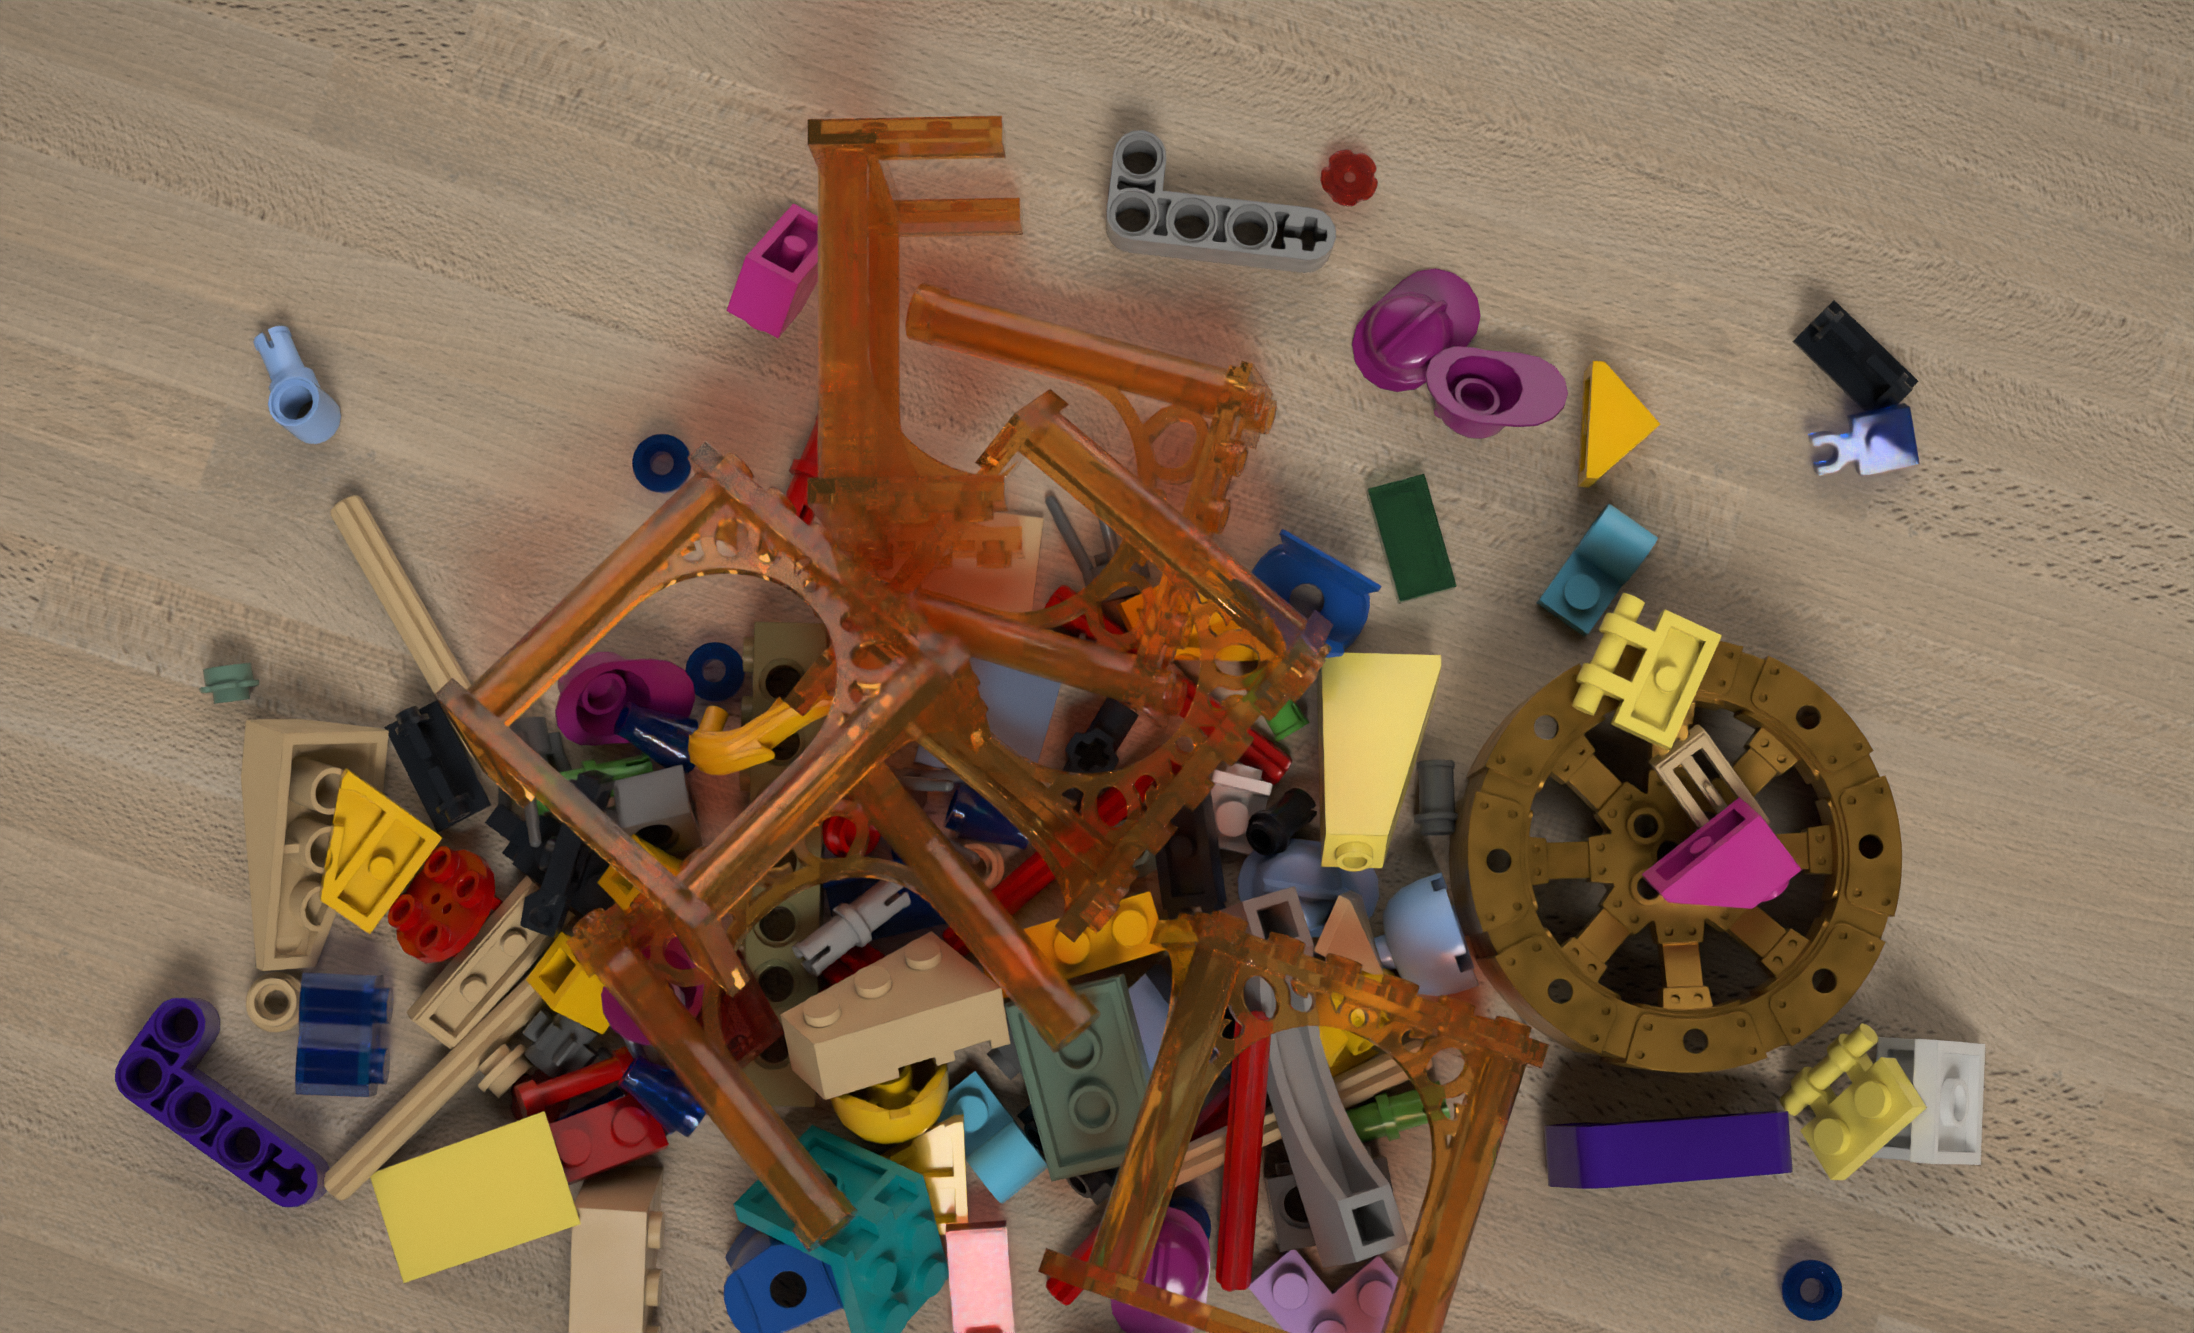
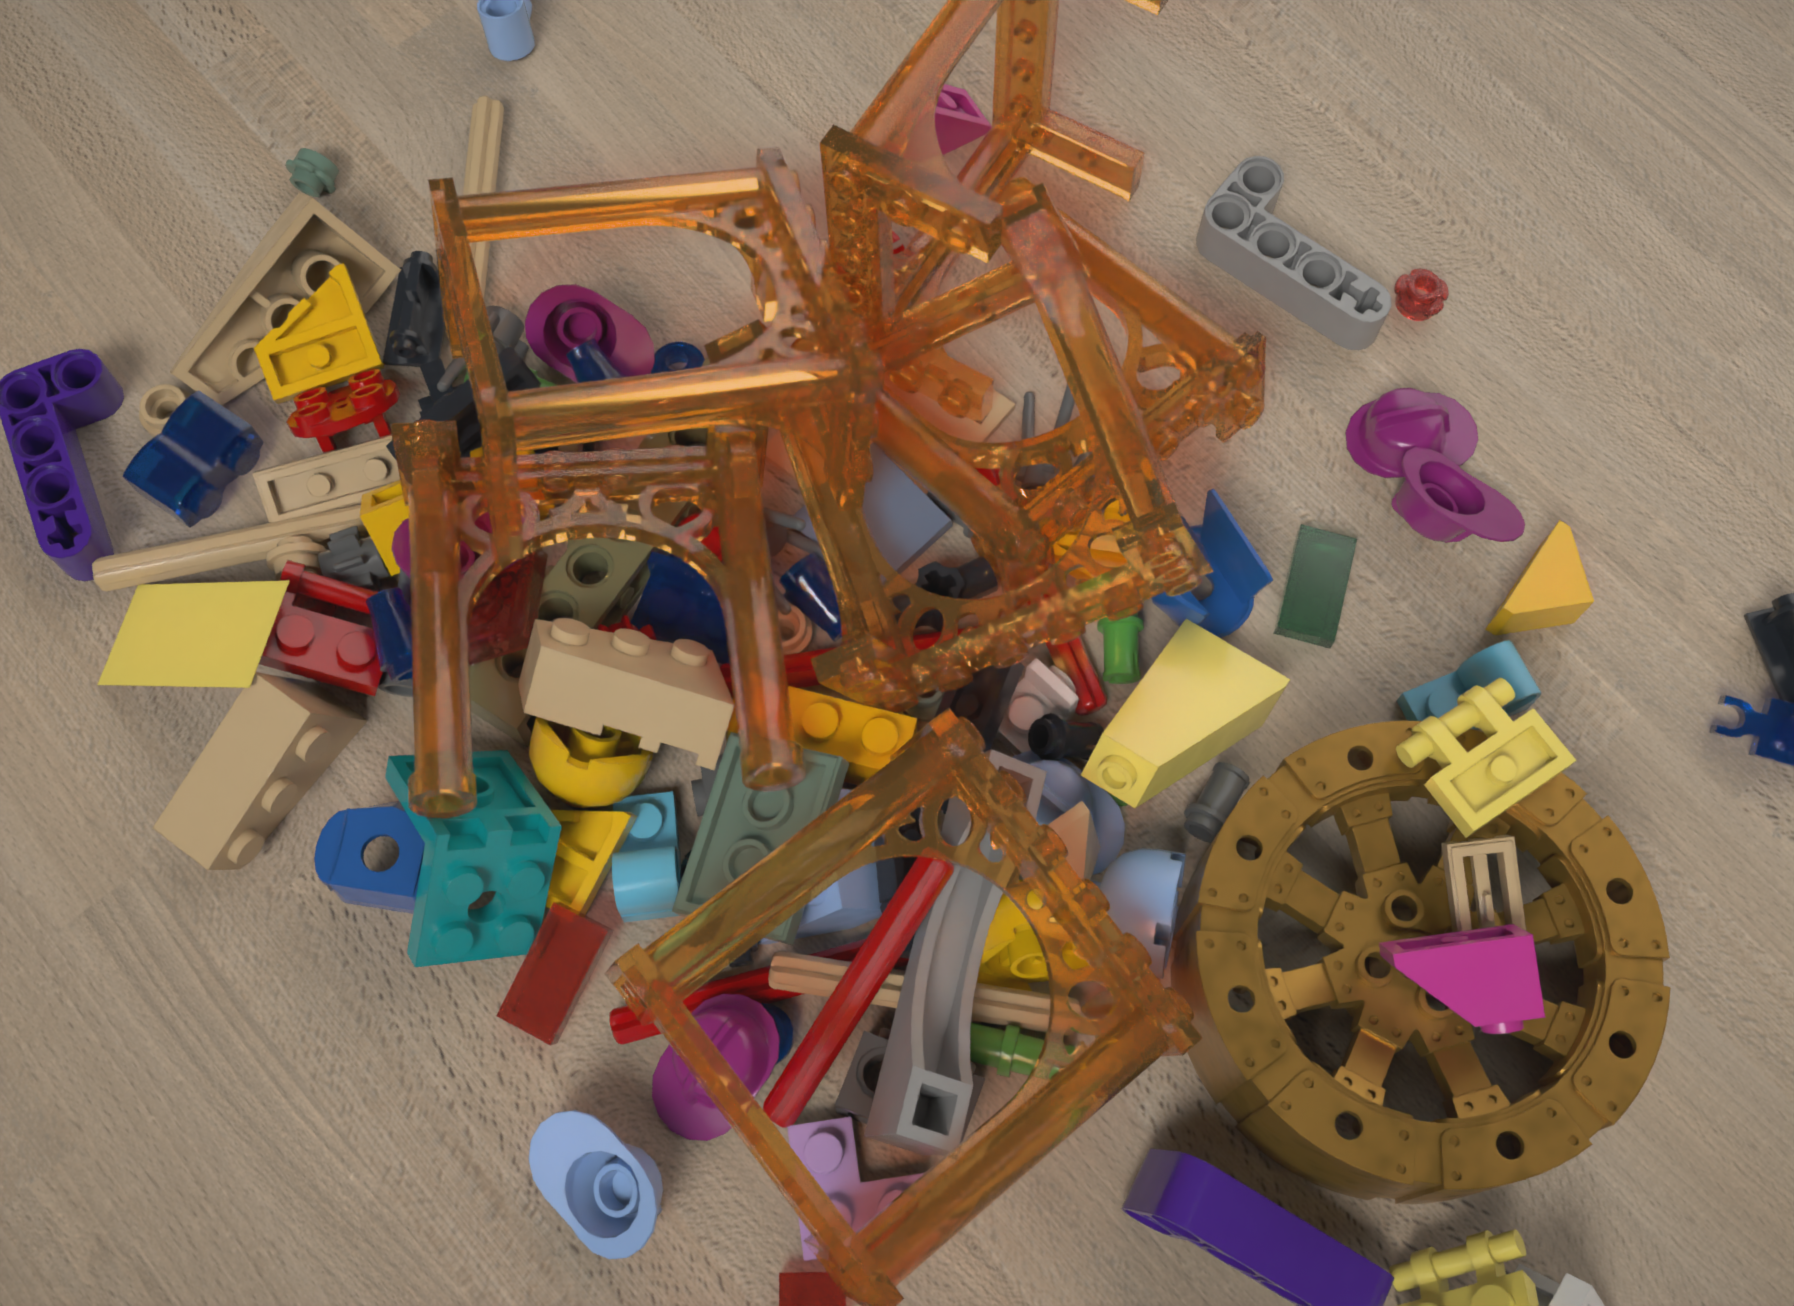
camera: 35 degrees right, 15 degrees down
(850, 926) = (647, 599): light grey pin -> none

